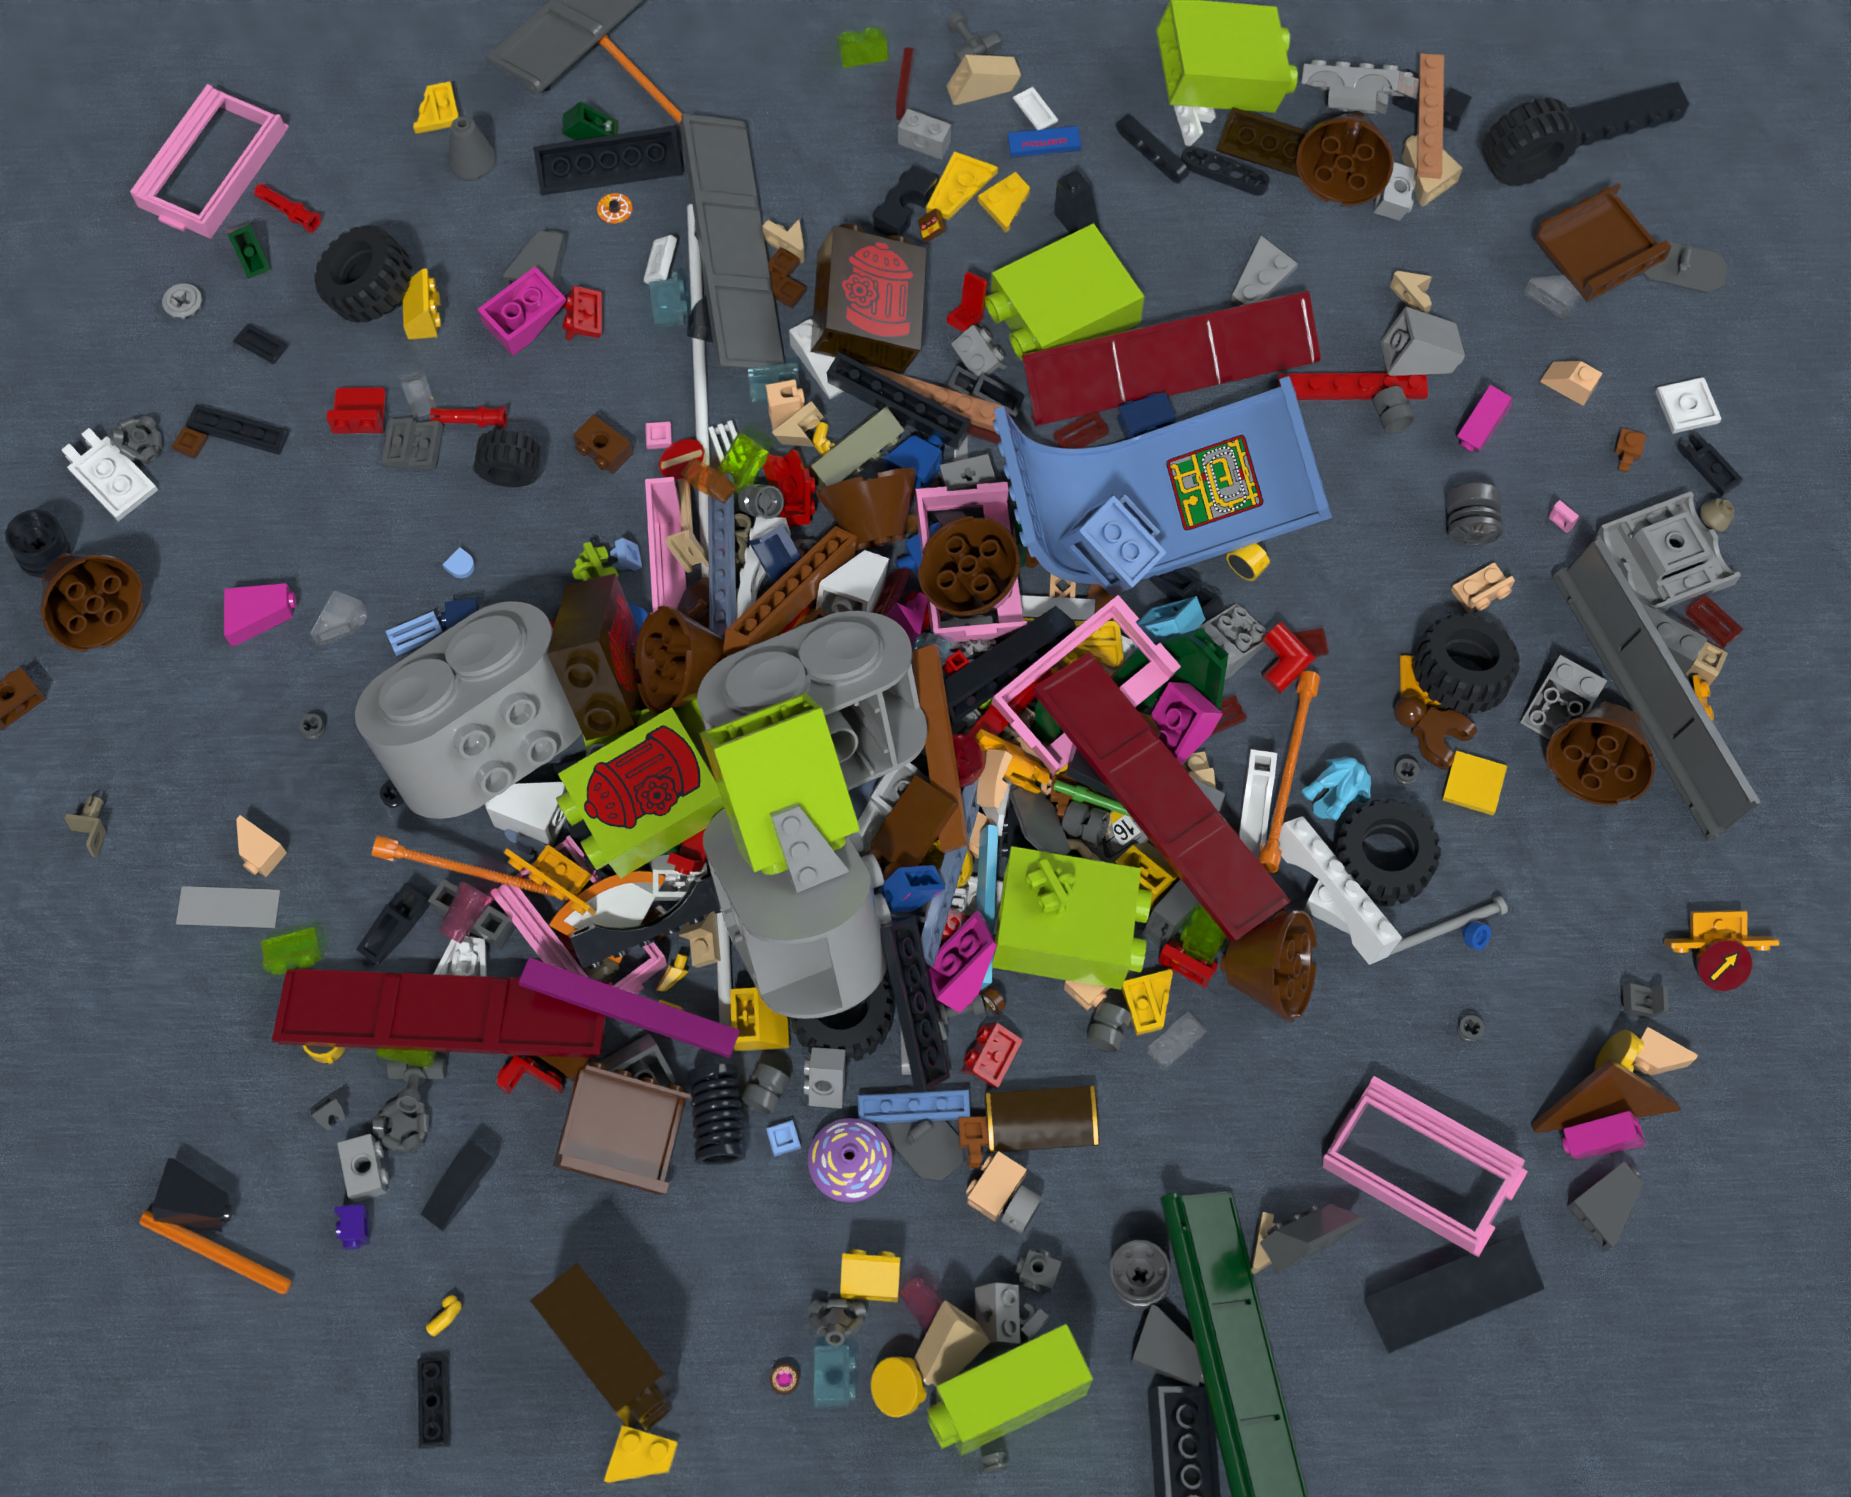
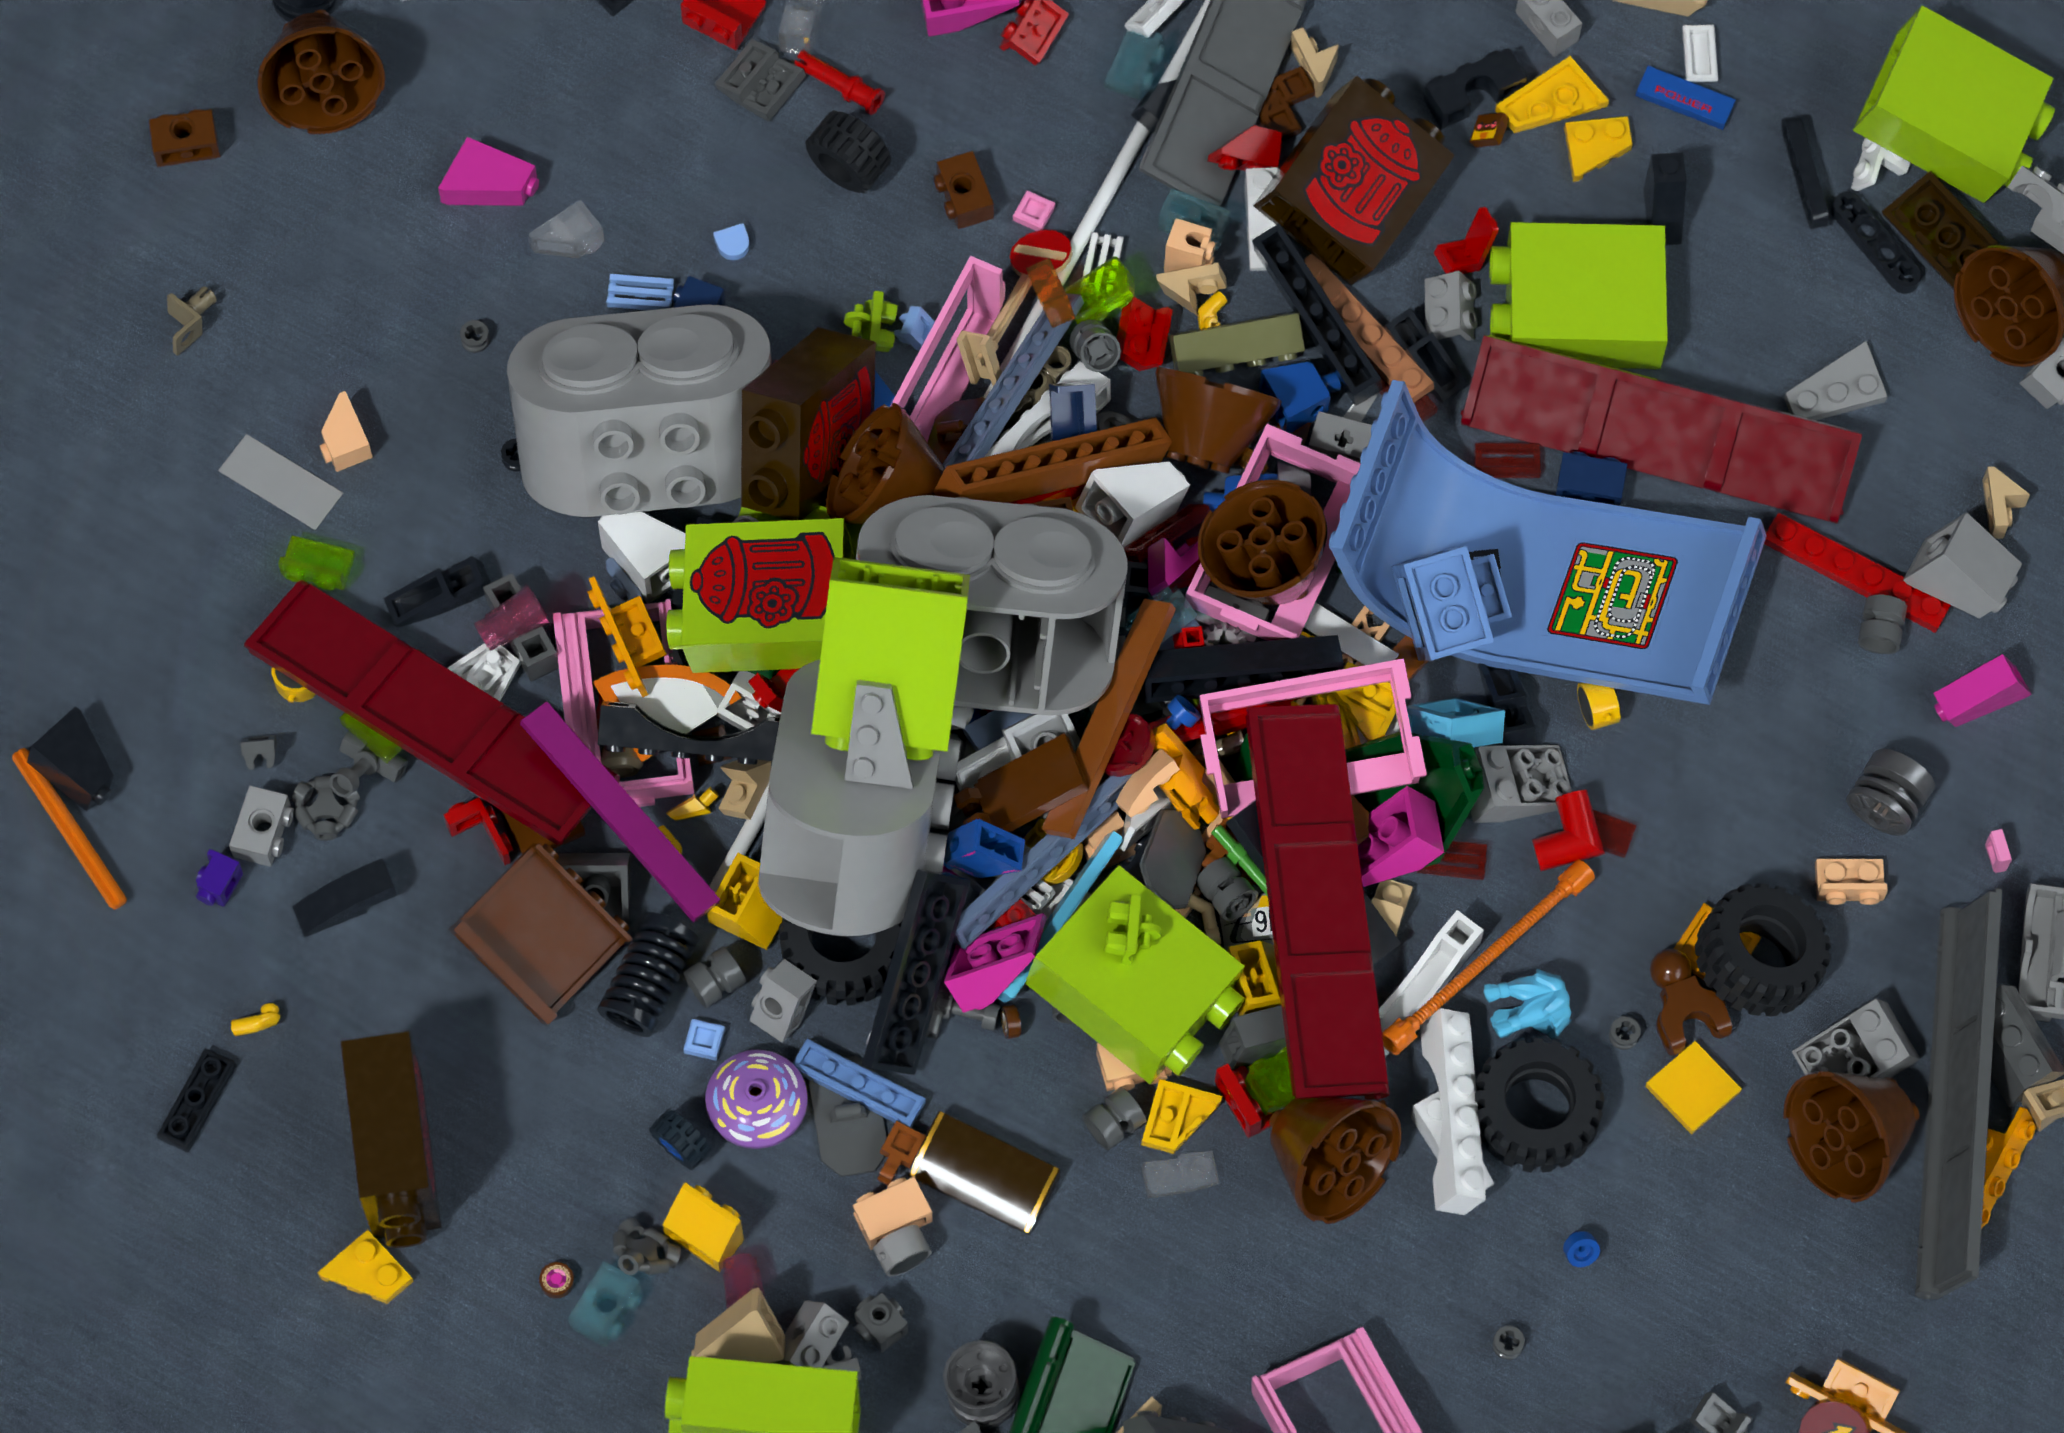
camera: 30 degrees right, 0 degrees up
(388, 849) = (472, 509): orange hose -> none
(781, 317) = (1249, 149): none -> red slope
(800, 513) = (1130, 381): red bracket -> none
(814, 1222) = (680, 1139): none -> black wheel
(897, 1386) = (663, 1350): yellow tile -> none
(985, 716) = (1182, 713): none -> blue tile
(991, 1054) = (974, 1076): bracket -> none
(1498, 906) = (1556, 1222): light grey bar -> none

